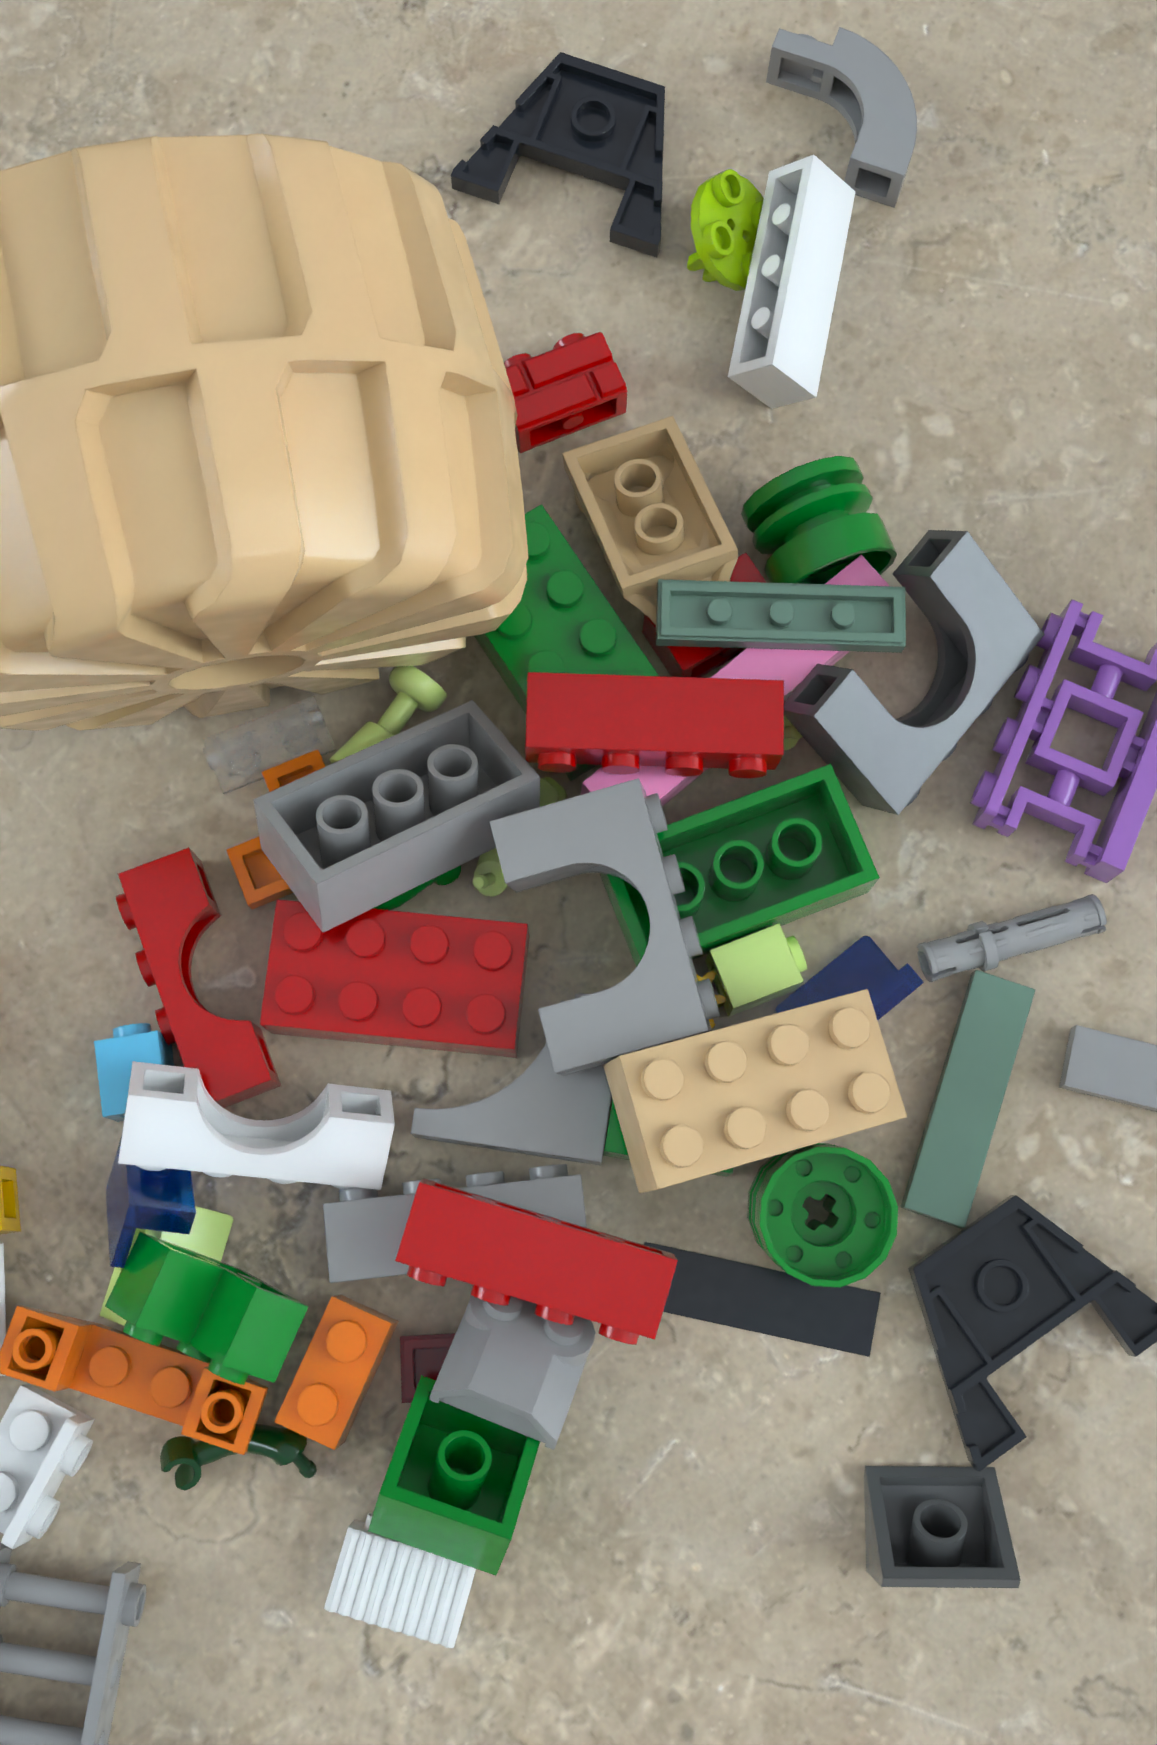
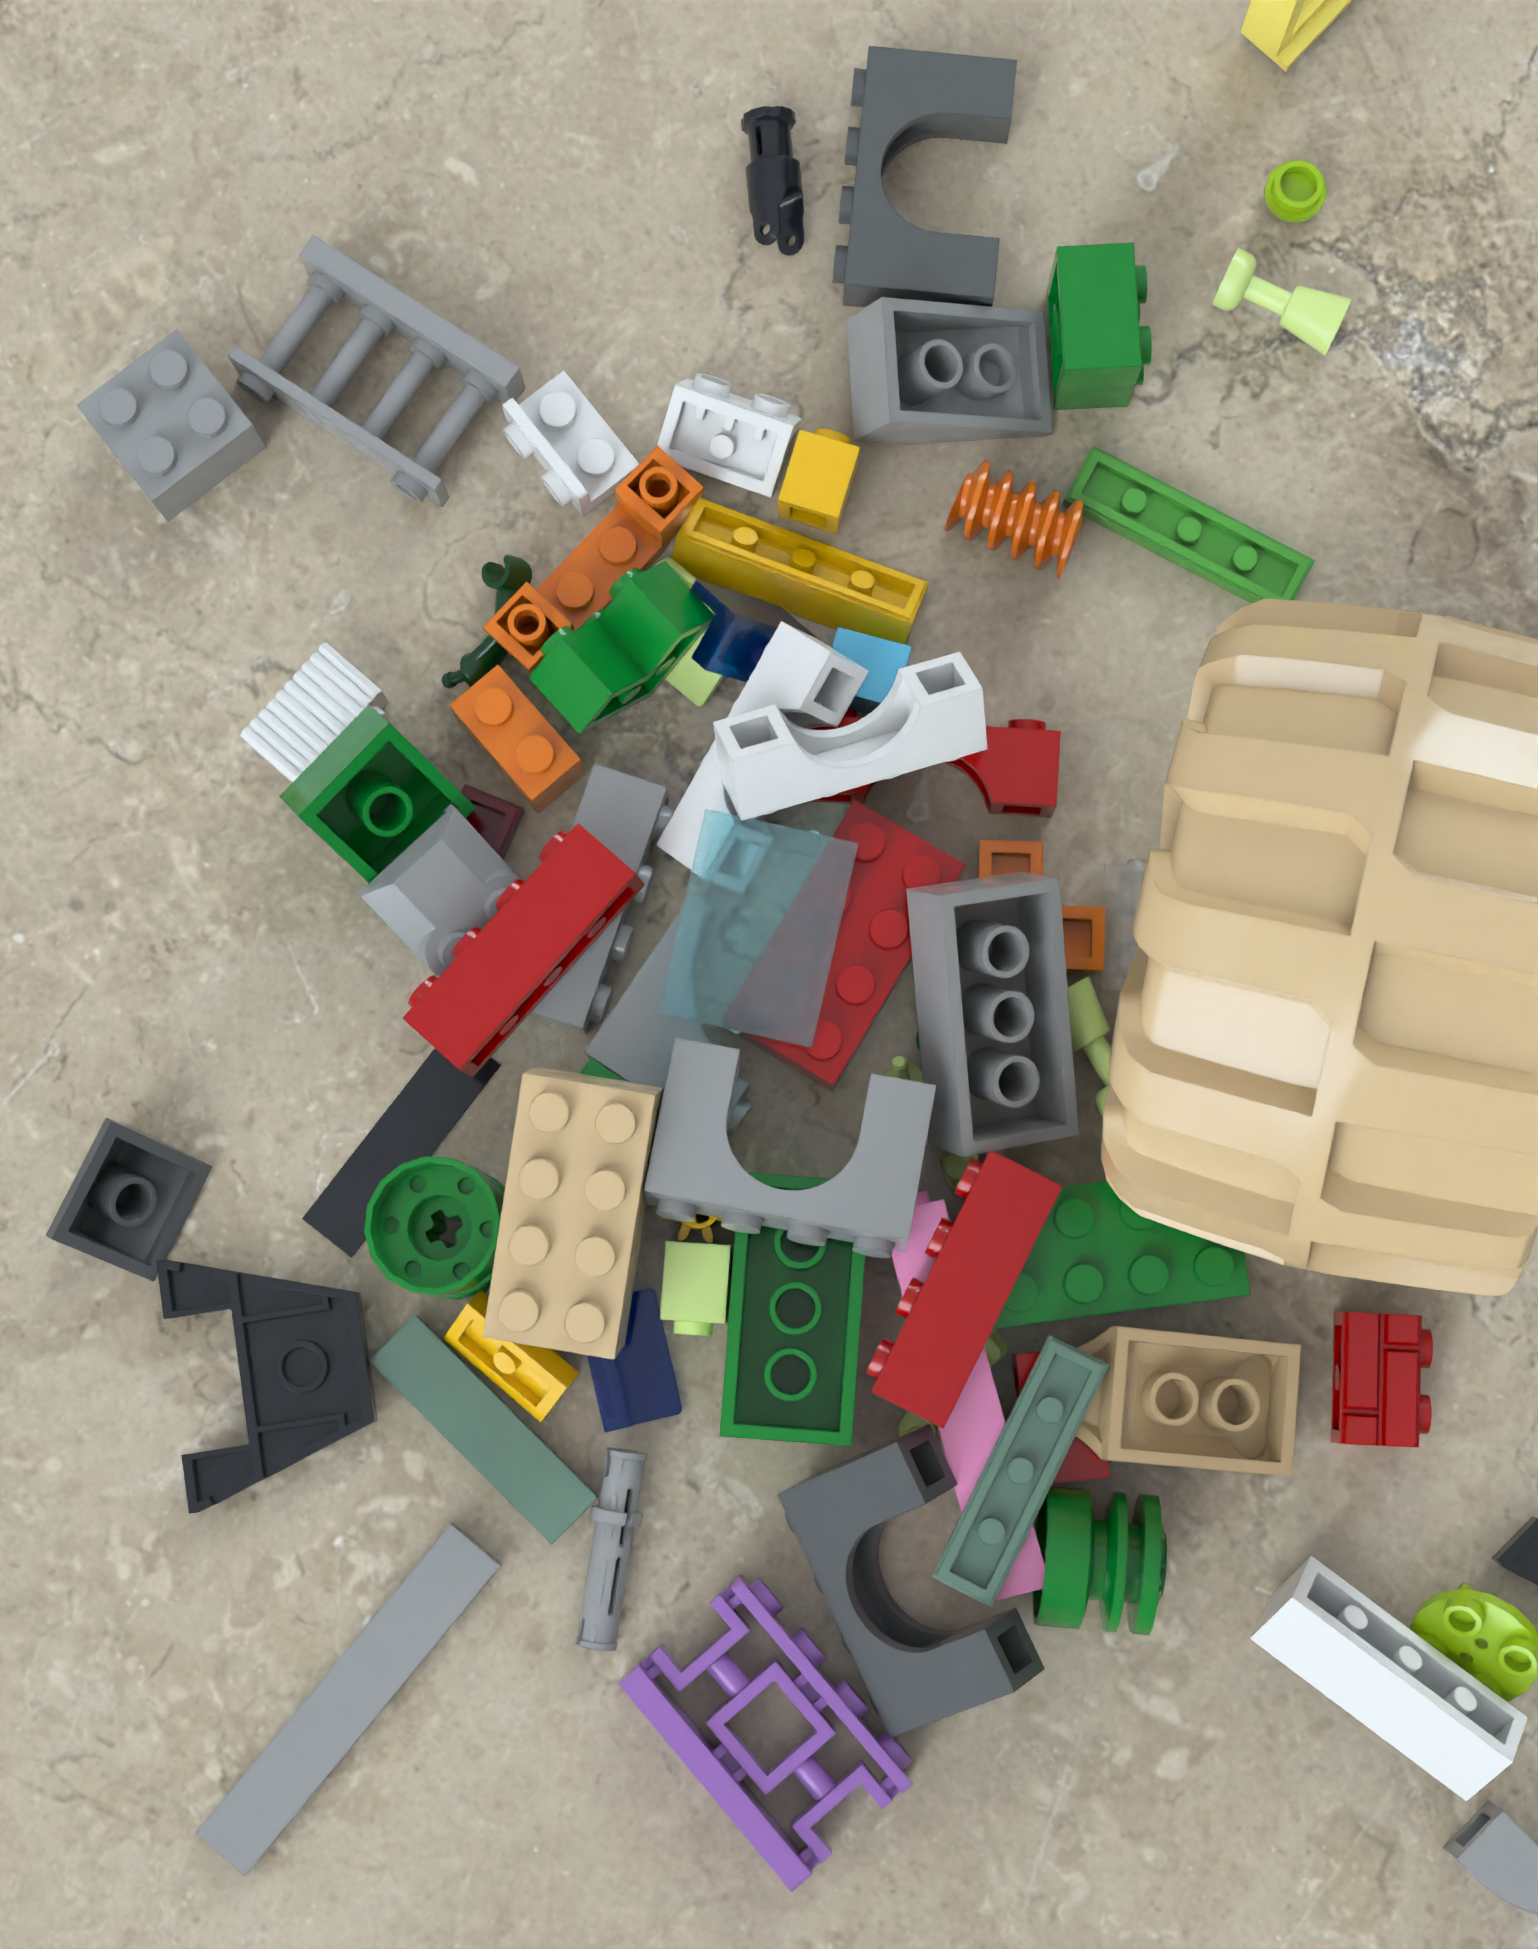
camera: 120 degrees right, 5 degrees up
(67, 1186) = (797, 573): none -> yellow slope
(157, 988) = (923, 721): none -> white arch
(417, 1050) = (758, 928): none -> clear light blue piece
(897, 1141) = (527, 1373): none -> yellow plate

